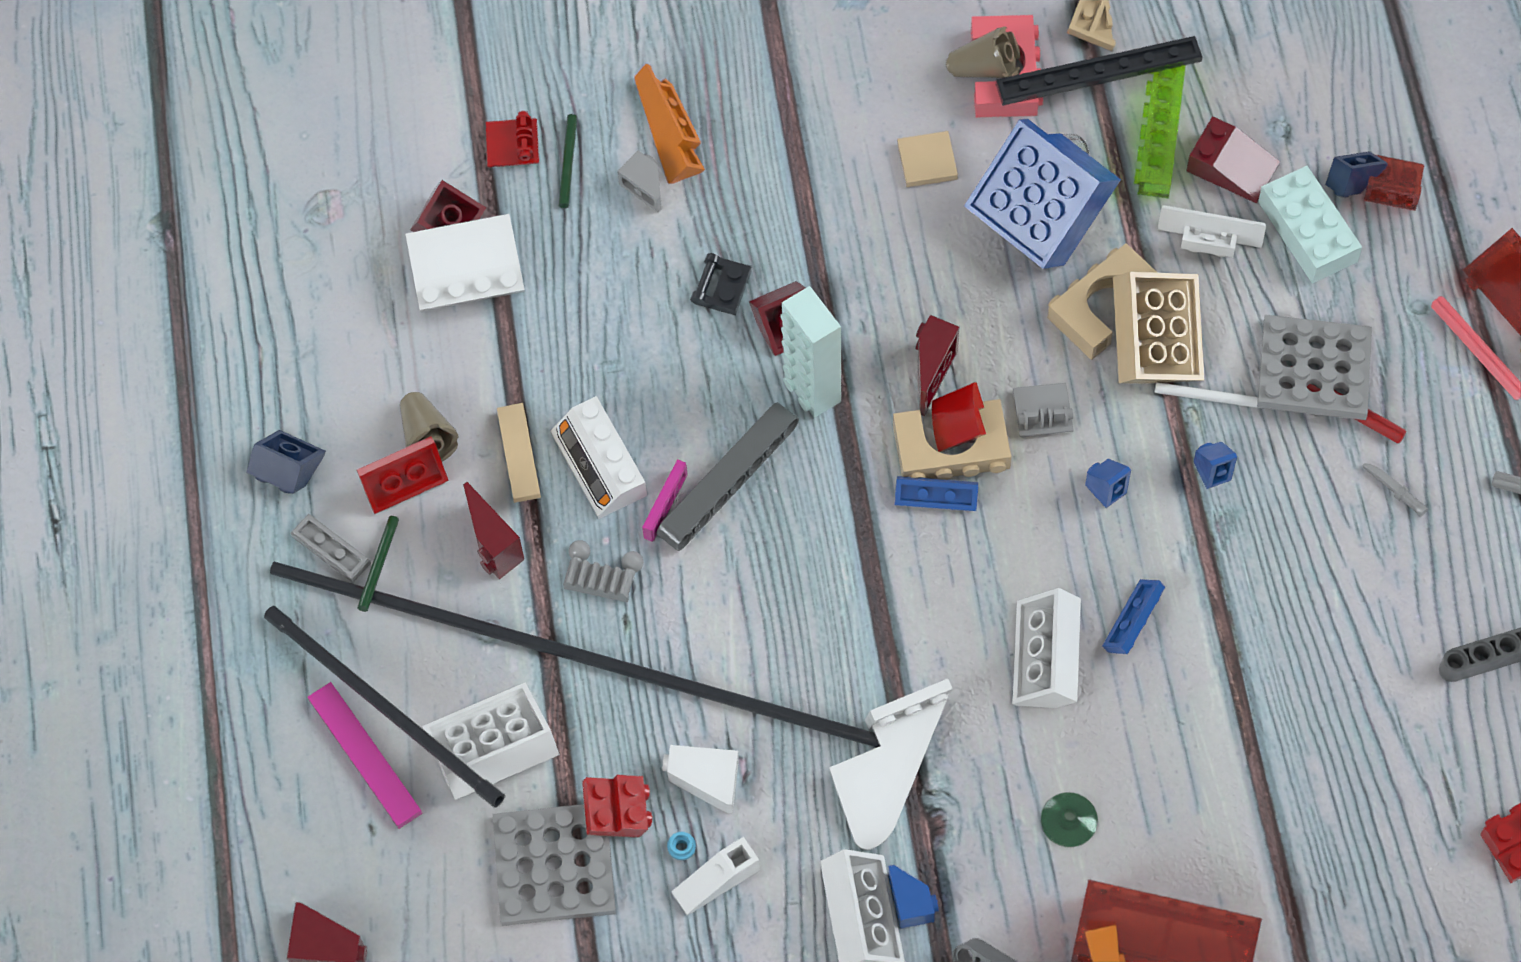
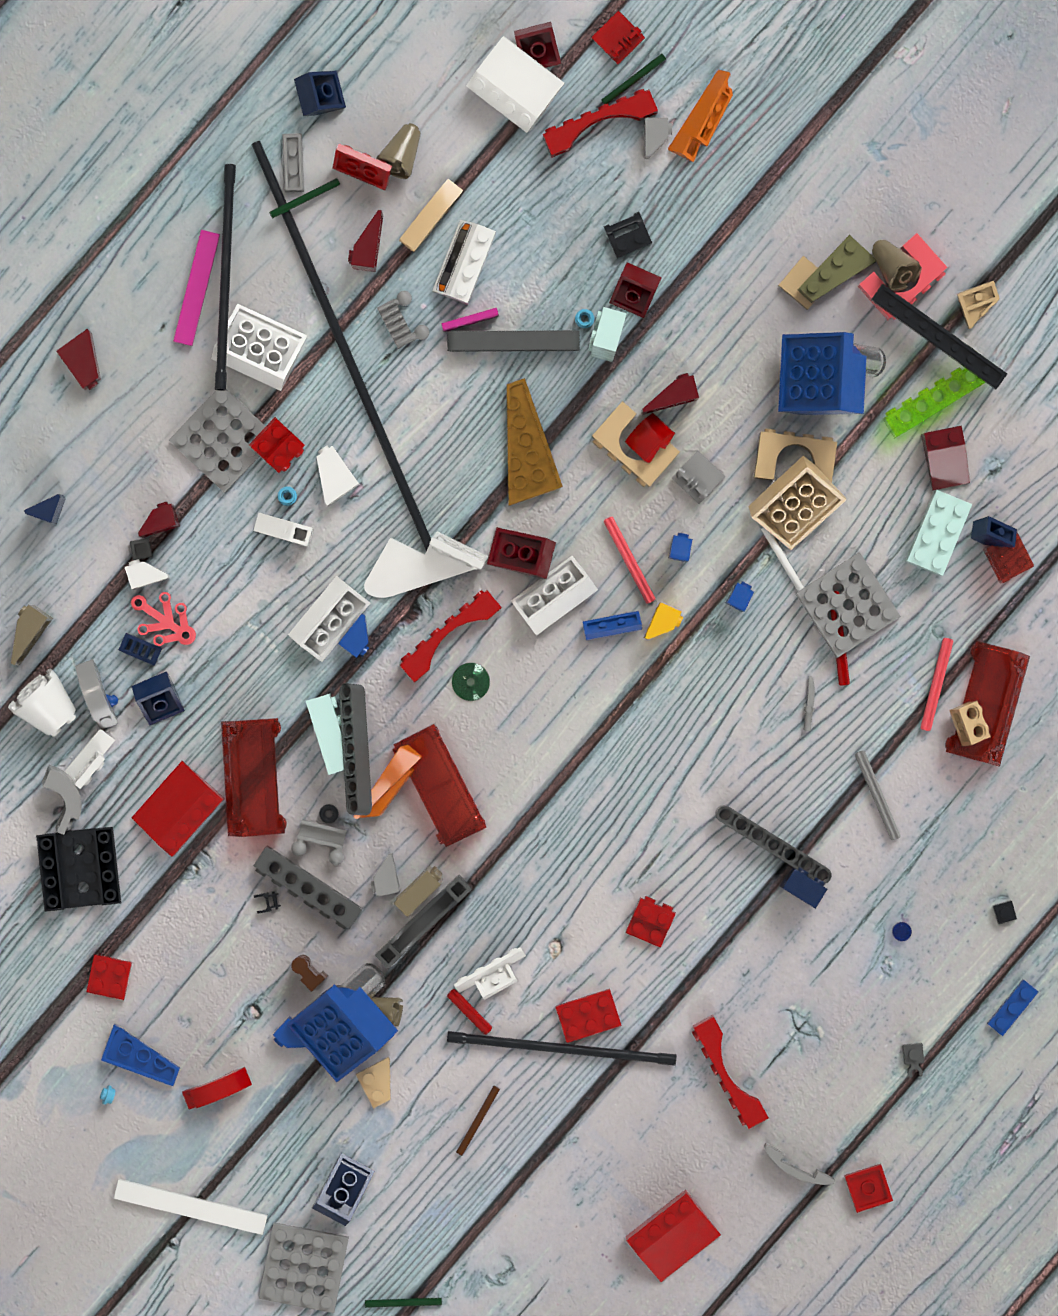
camera: 40 degrees right, 25 degrees up
(598, 177) = (636, 107): none -> red arch
(769, 383) = (589, 314): none -> medium azure plate
(869, 558) = (529, 456): none -> pearl gold wing
(936, 493) = (597, 462): blue plate -> none
(940, 116) = (840, 266): none -> olive wing
(969, 646) = (521, 553): none -> dark red slope
(999, 851) = (419, 662): none -> red arch
(1074, 545) = (629, 560): none -> coral axle
(1172, 554) = (663, 621): none -> yellow slope
(1211, 232) = (886, 482): white bracket -> none

